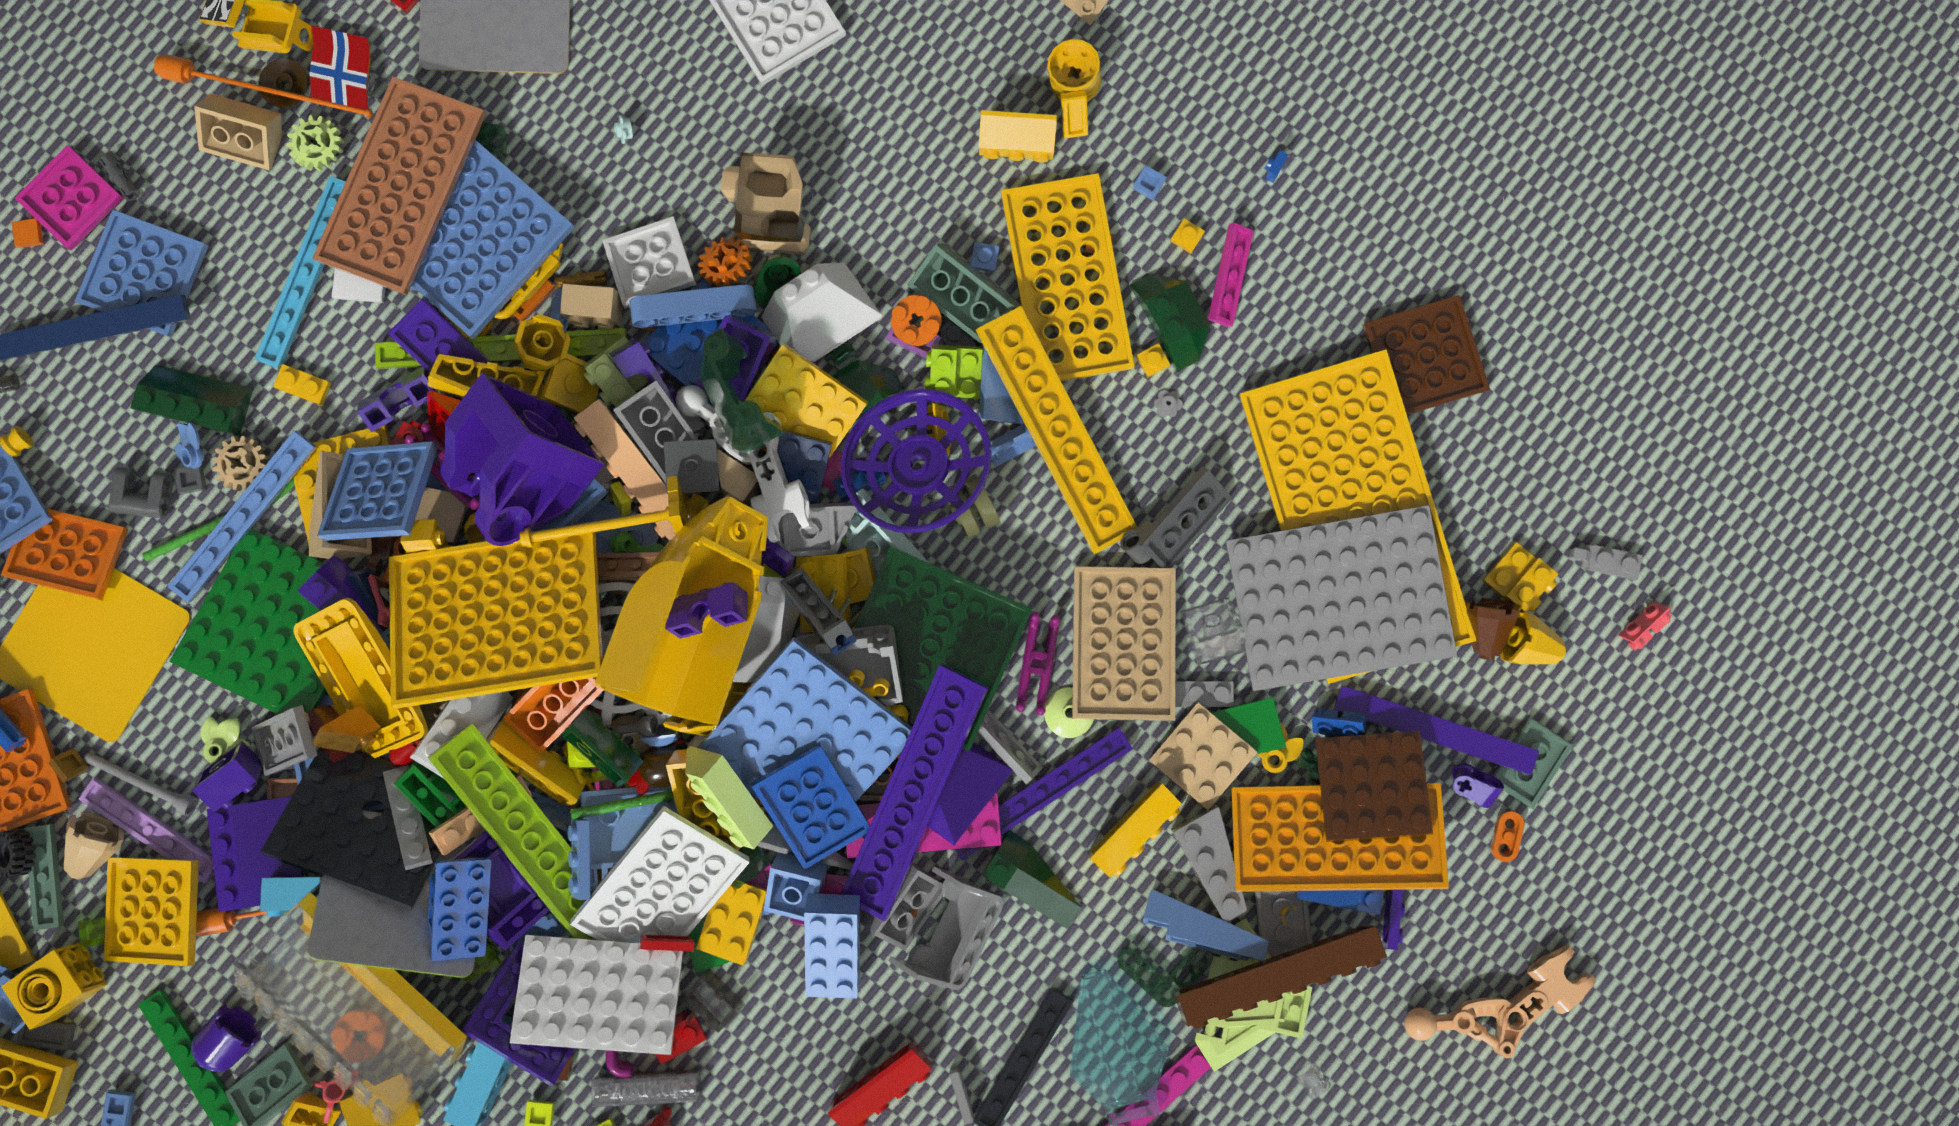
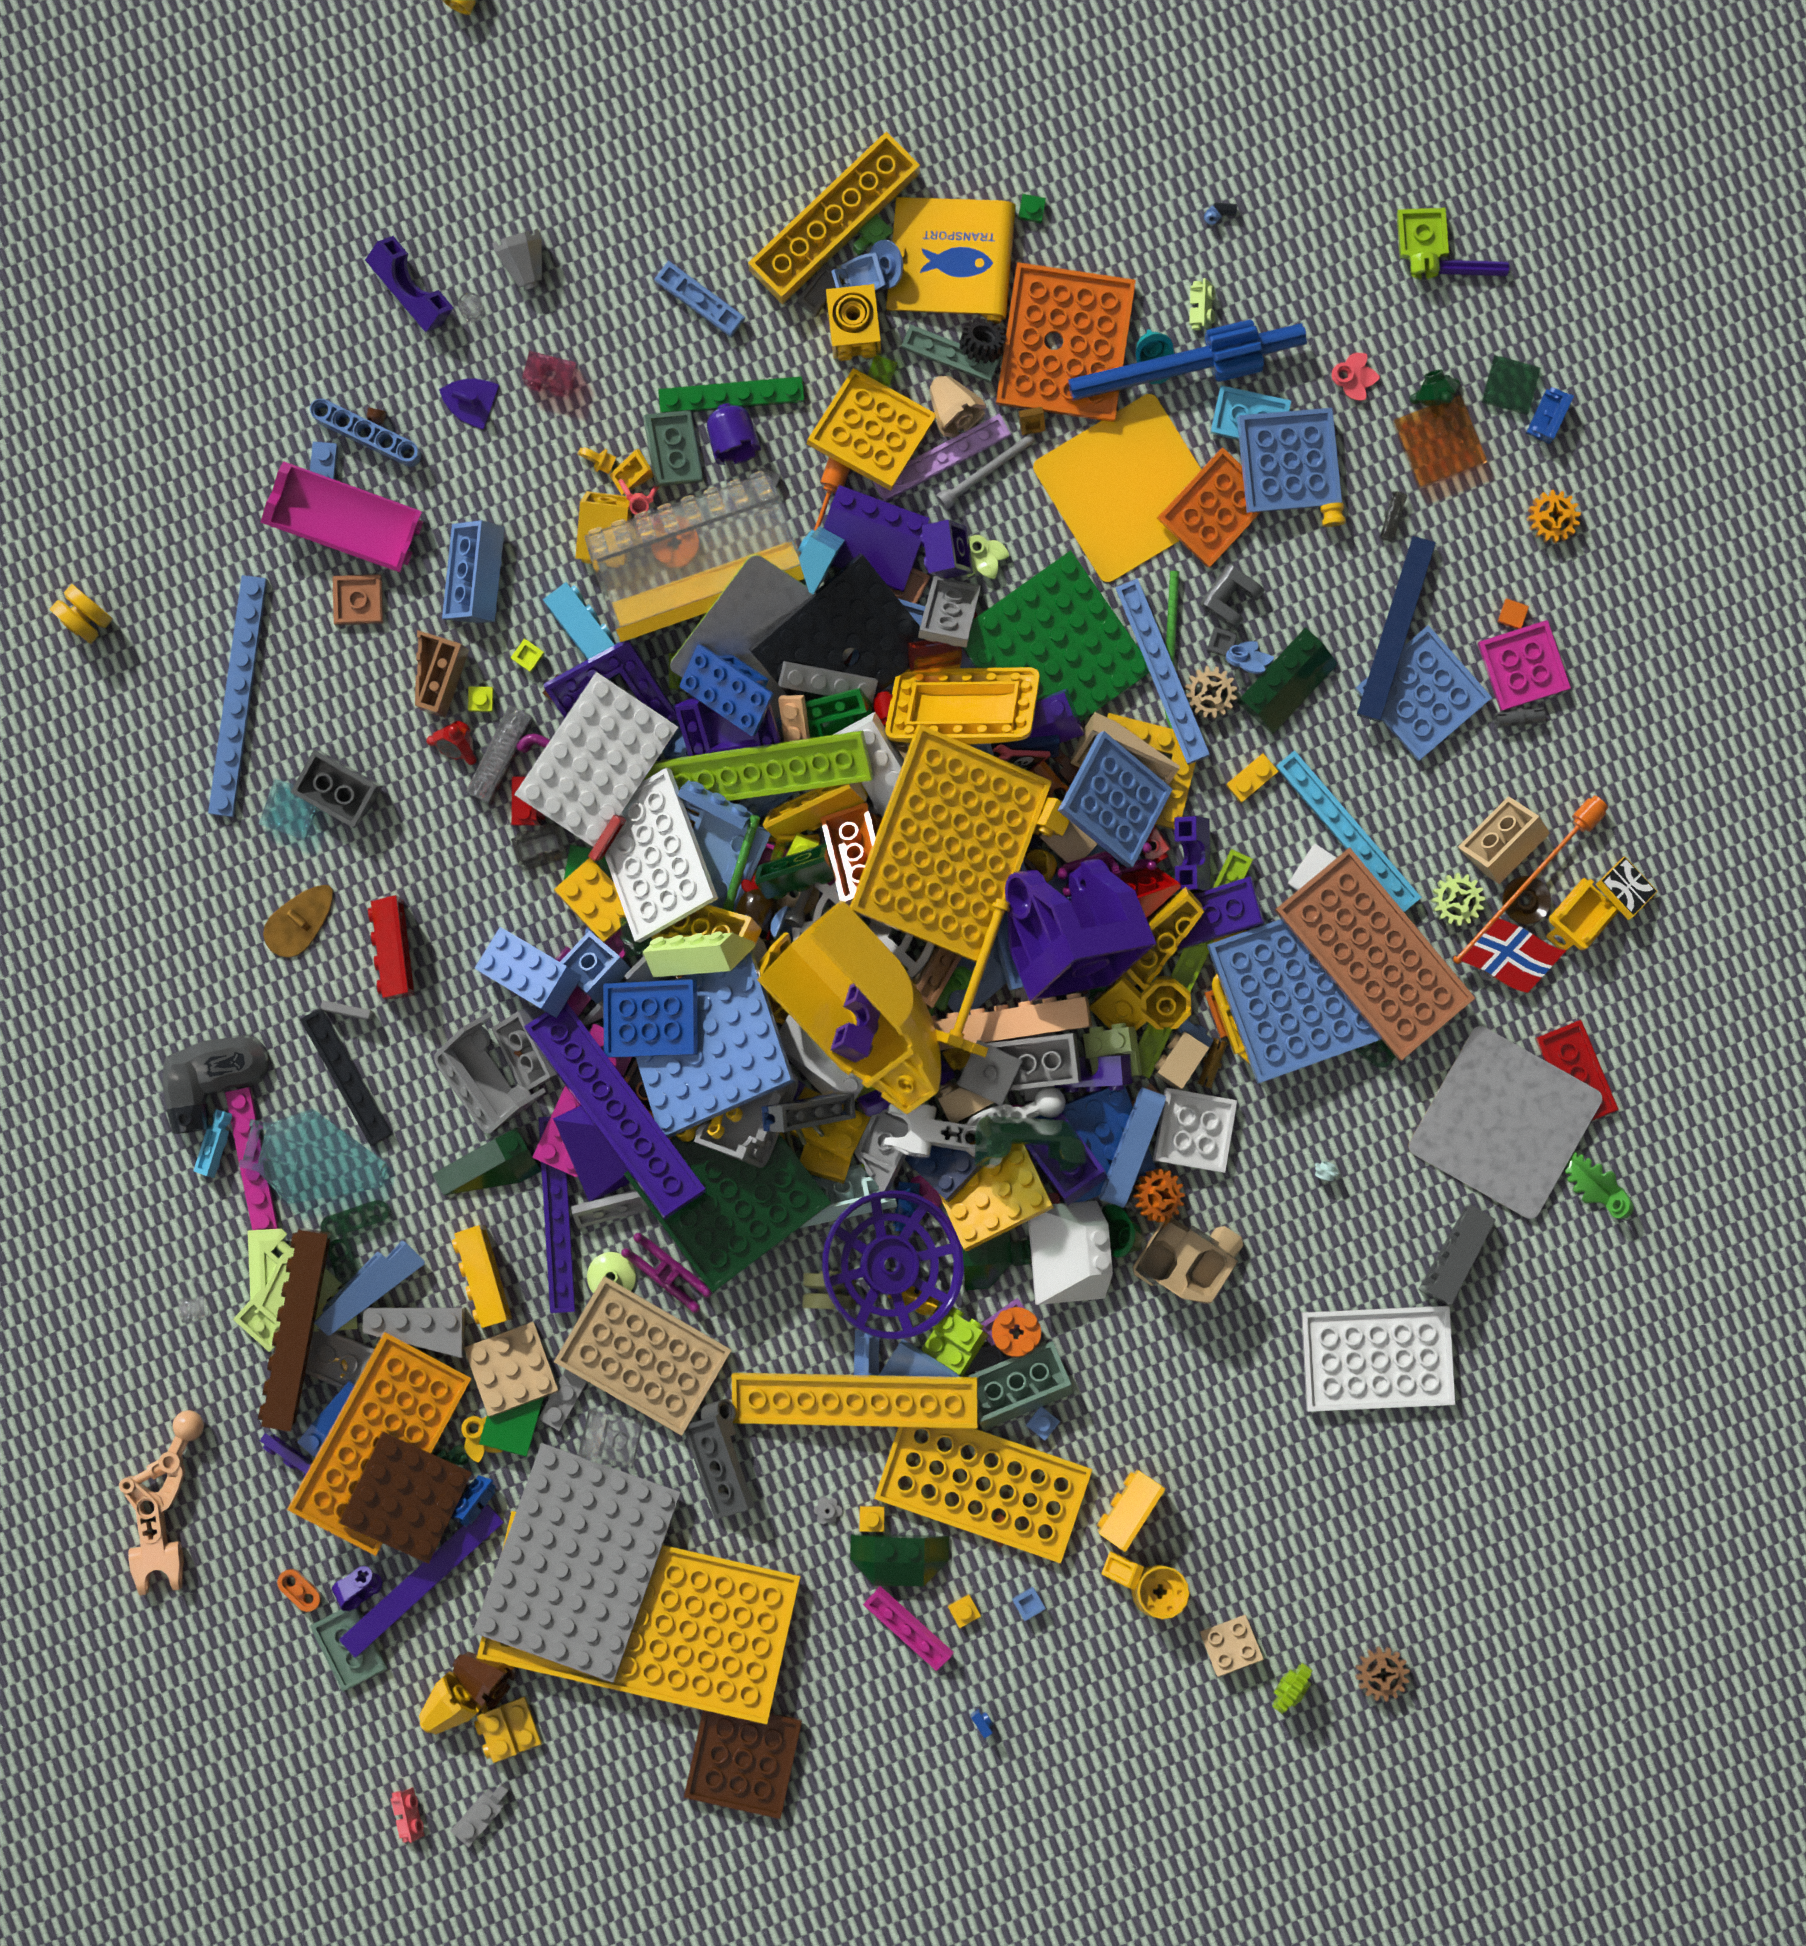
camera: 115 degrees right, 0 degrees up
(348, 732) = (924, 672): pearl gold slope -> none
(620, 498) = (1001, 996): neon yellow plate -> none

